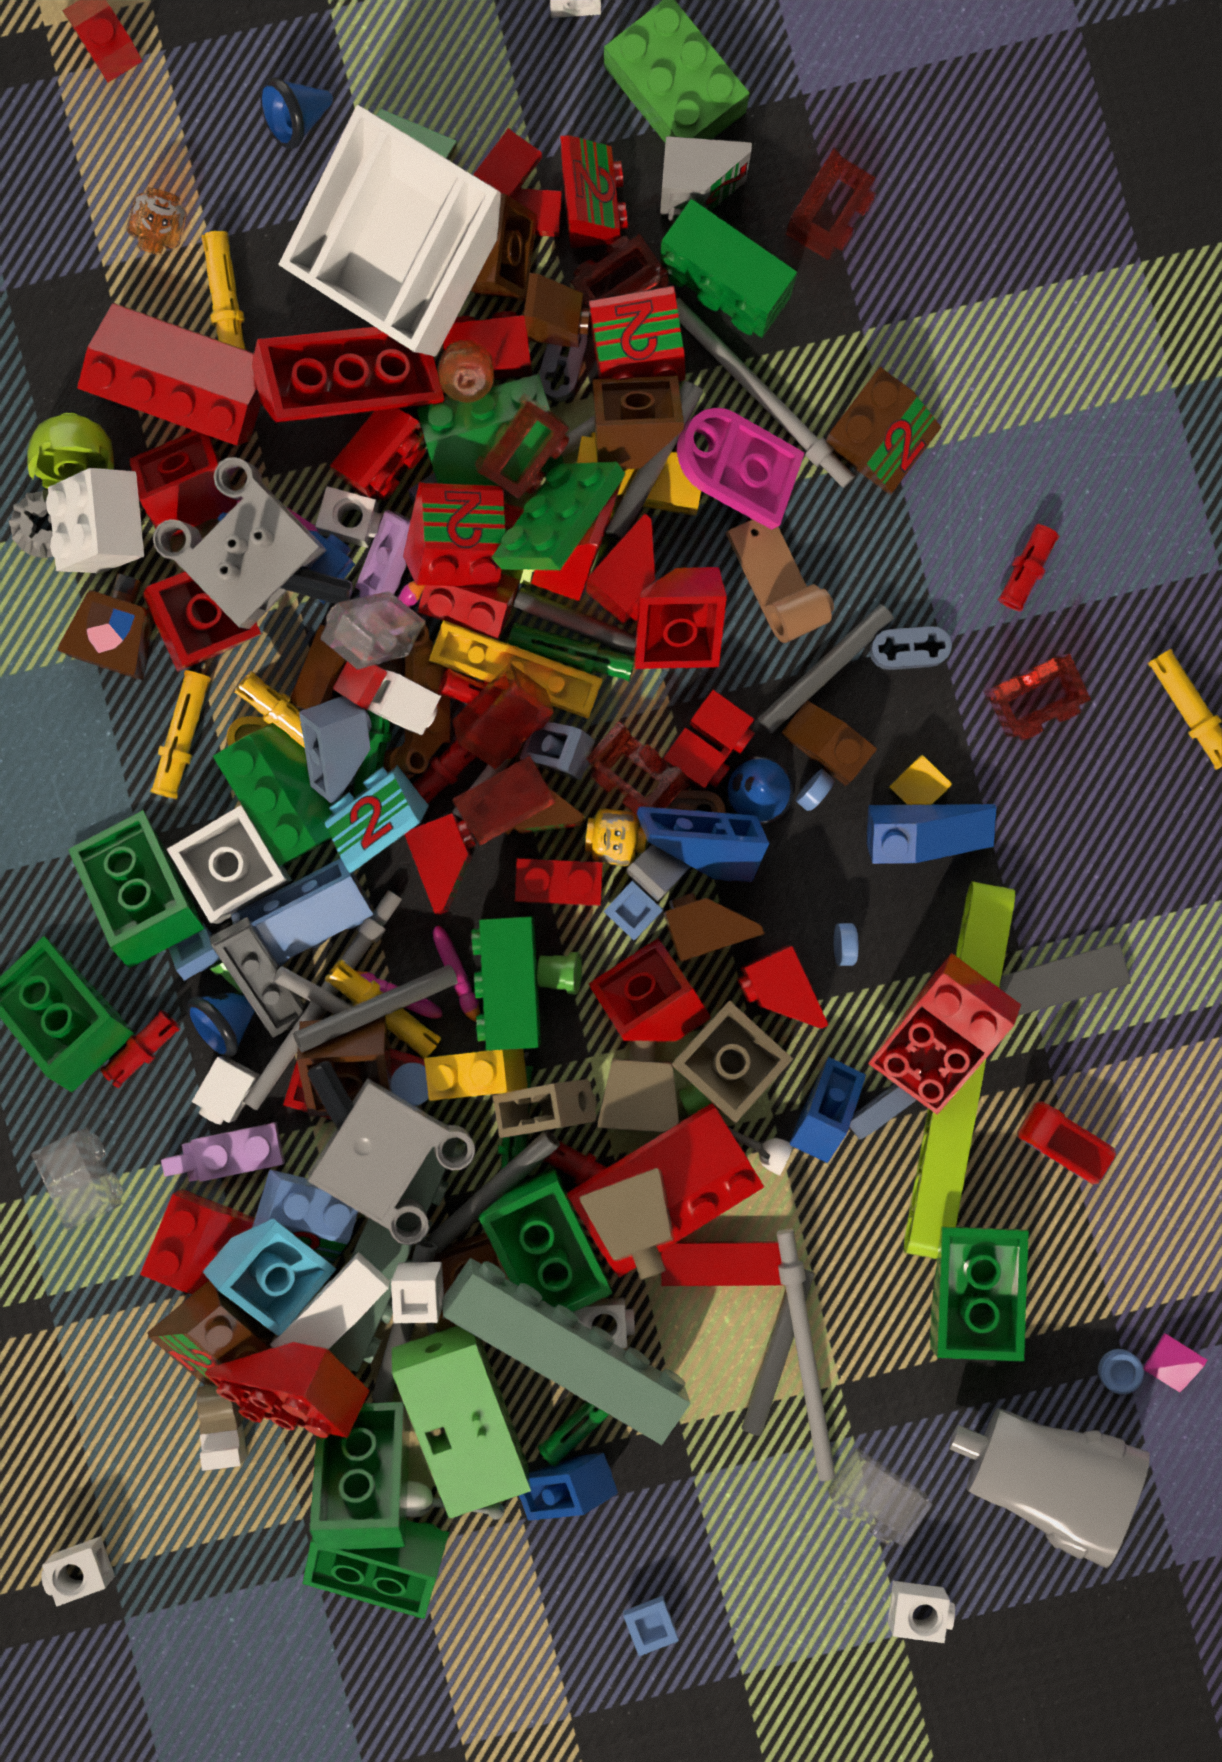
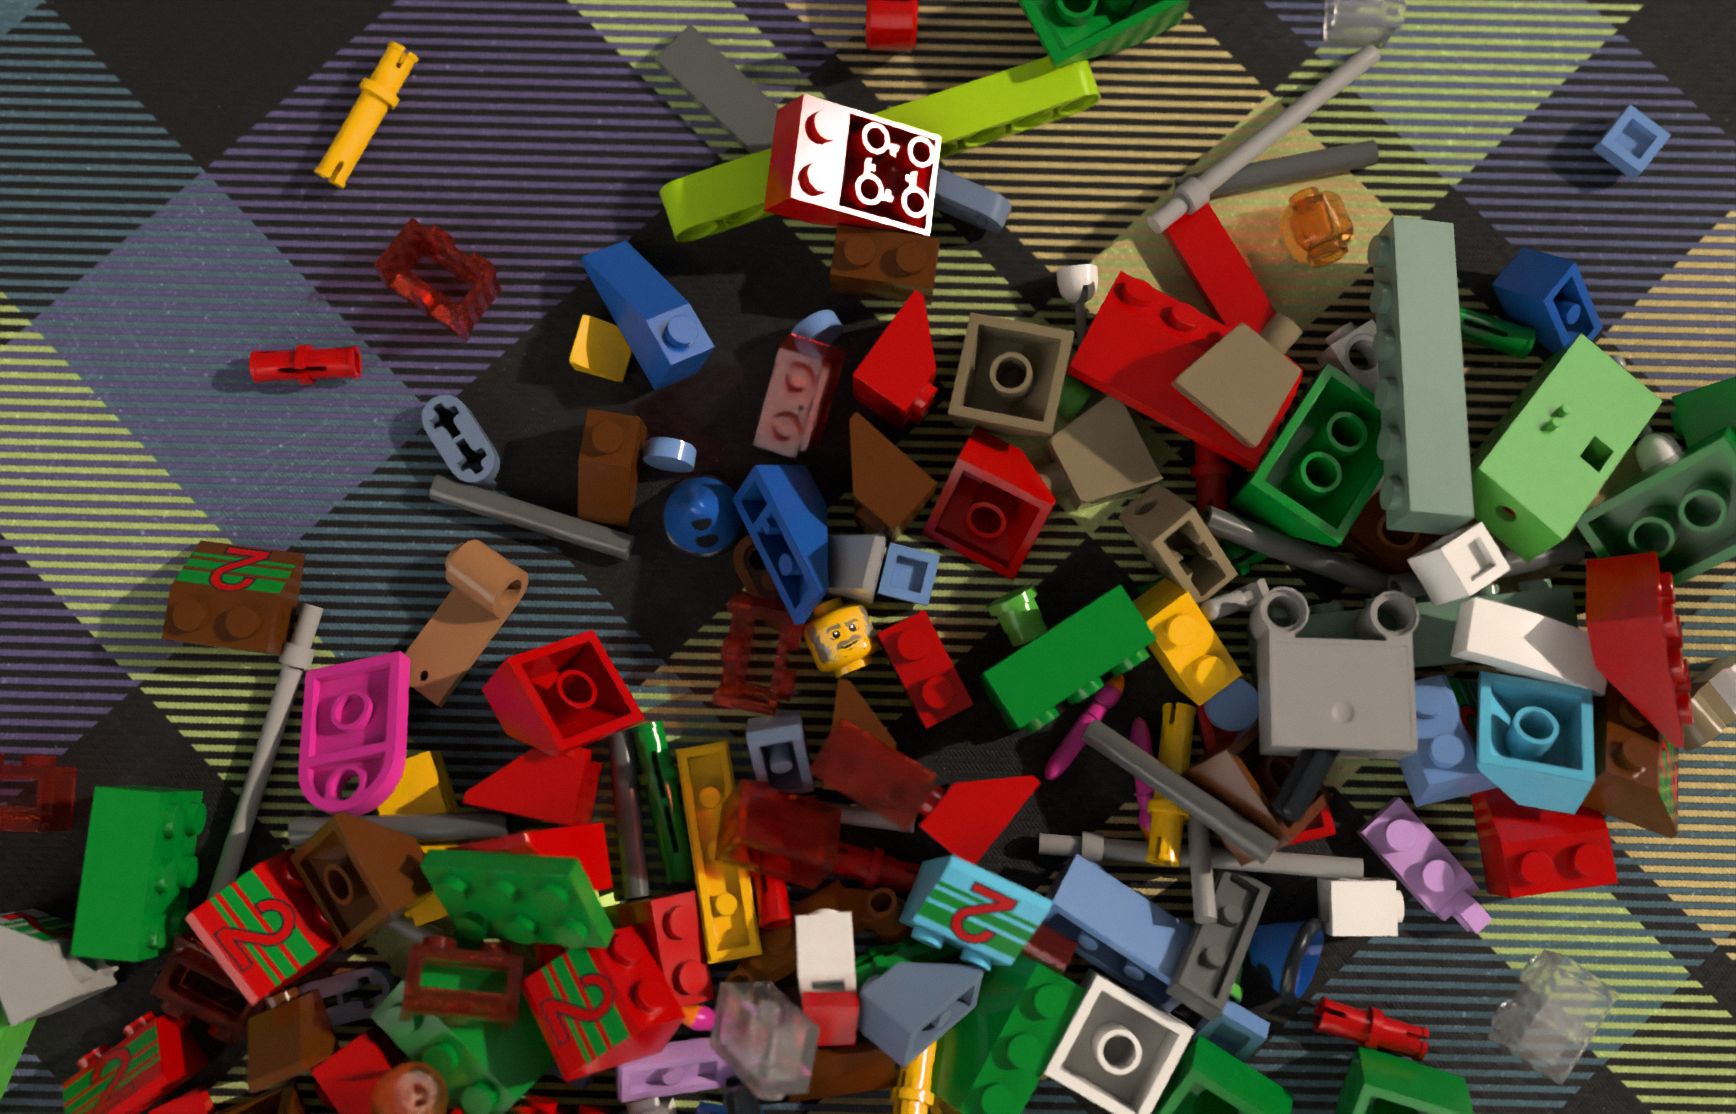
camera: 120 degrees left, 5 degrees down
(321, 857) = (1050, 948): none -> clear red hinge
(483, 1127) = (1234, 600): none -> light grey bar
(718, 1352) = (1316, 227): none -> clear orange head
(721, 724) = (654, 592): red piece -> none
(813, 911) = (804, 376): none -> clear red window
(828, 1110) = (1001, 253): blue slope -> none
(867, 1021) = (883, 263): none -> reddish brown brick

